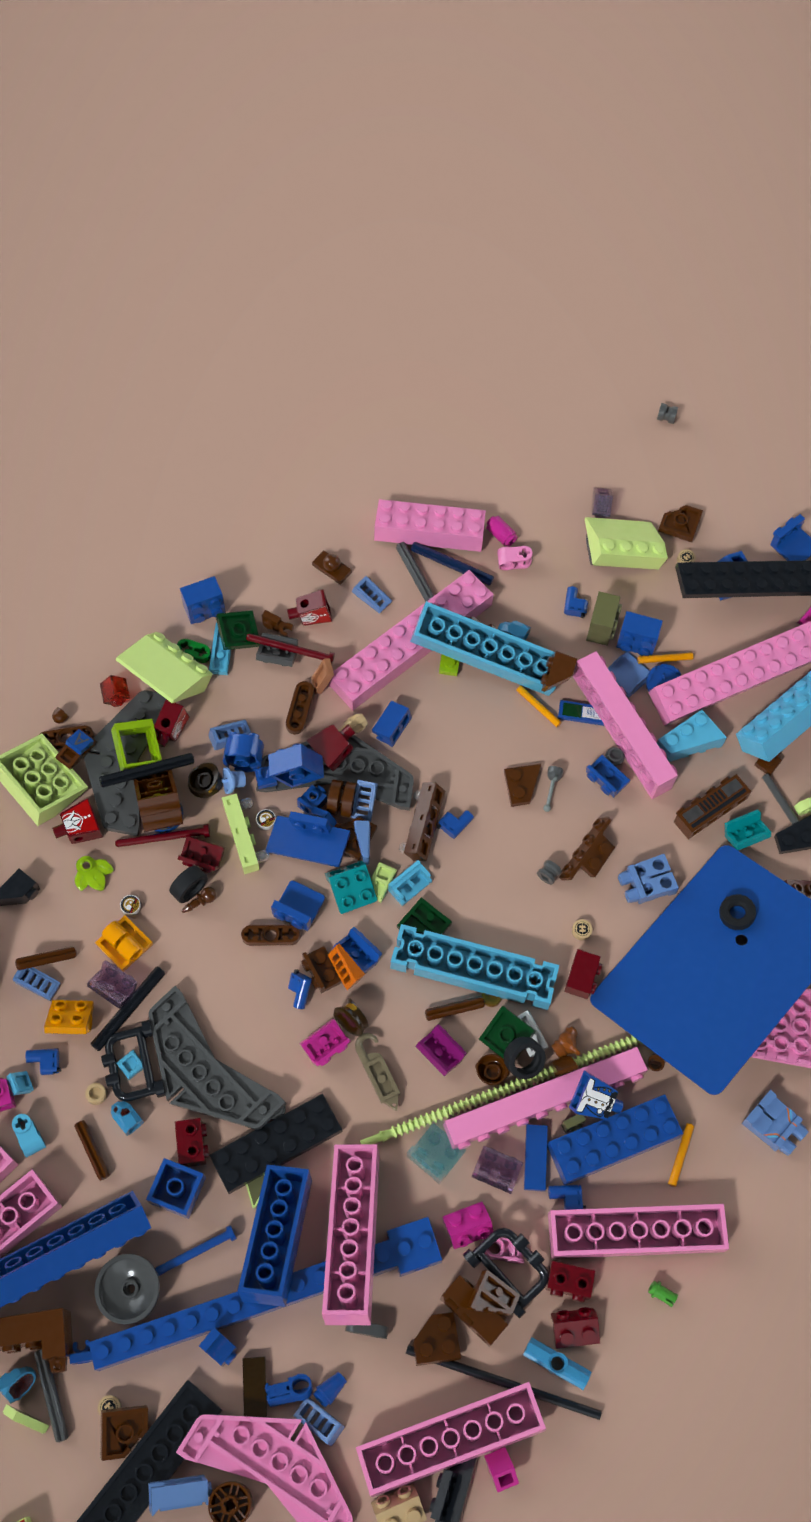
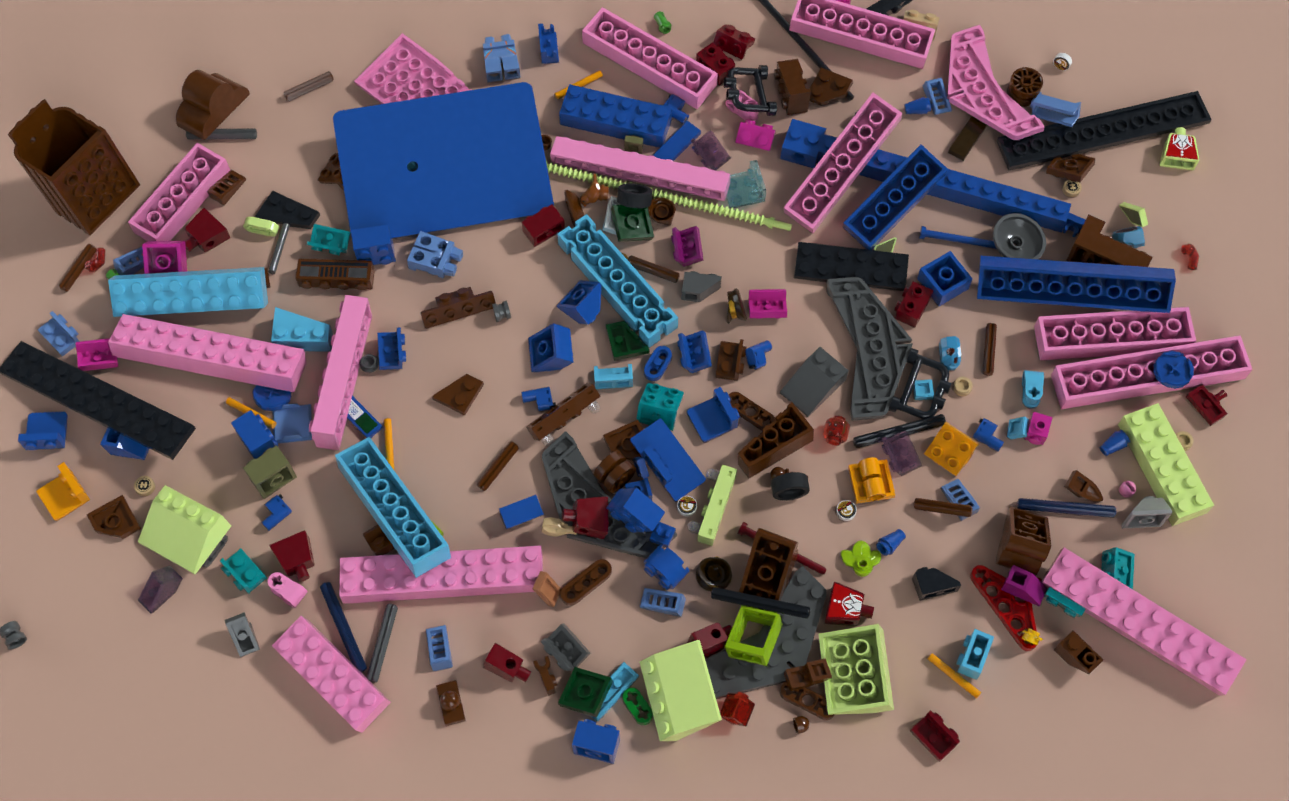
camera: 140 degrees left, 0 degrees up
(51, 1398) = (1110, 210): dark grey axle -> none
(74, 901) = (890, 542): none -> blue cone
(79, 742) = (801, 672): blue tile -> none
(182, 965) = (836, 430): none -> clear red head
(201, 854) = (762, 508): dark red bracket -> none
(219, 1347) = (978, 167): blue arch -> none
(226, 921) = (778, 440): none -> reddish brown wedge
(232, 1000) = (814, 381): none -> dark grey slope
(233, 780) = (692, 553): light blue piece -> none
(283, 1392) = (950, 123): blue piece -> none
(289, 647) = (526, 608): dark red bar -> none
(345, 967) = (713, 342): orange slope -> none
(360, 783) = (584, 464): medium blue slope -> none
(362, 831) = (622, 426): medium blue slope -> none
(378, 1073) = (744, 261): dark tan plate -> none
(381, 878) = (631, 395): yellowish green tile -> none
(381, 921) = (657, 364): none -> blue plate
(401, 1016) = (699, 286): none -> dark grey slope
(441, 748) = (497, 466): none -> reddish brown axle
(479, 868) = (550, 349): none -> blue slope
(489, 926) = (582, 302): none -> blue slope
(492, 1296) = (777, 75): reddish brown wing -> none
(501, 531) = (272, 624): dark pink head -> none
(515, 628) = (349, 519): dark azure rock -> none
(516, 511) = (242, 634): none -> dark grey slope
(530, 582) = (295, 555): none -> dark red torso
(554, 774) = (428, 381): hinge -> none
(558, 550) = (244, 571): none -> teal bracket
(559, 670) = (355, 440): reddish brown slope -> none
(564, 1065) = (611, 174): reddish brown slope -> none
(569, 1014) = (574, 206): none -> reddish brown slope
(570, 1370) = (762, 29): dark azure piece -> none
(582, 929) = (513, 259): tan tile -> none
(595, 1098) = (610, 138): torso -> none
(702, 845) = (374, 244): none -> blue brick
(734, 514) = (63, 493): none -> light orange bracket
(737, 900) = (394, 173): black tyre -> none
(748, 1176) = (548, 44): none -> blue hinge

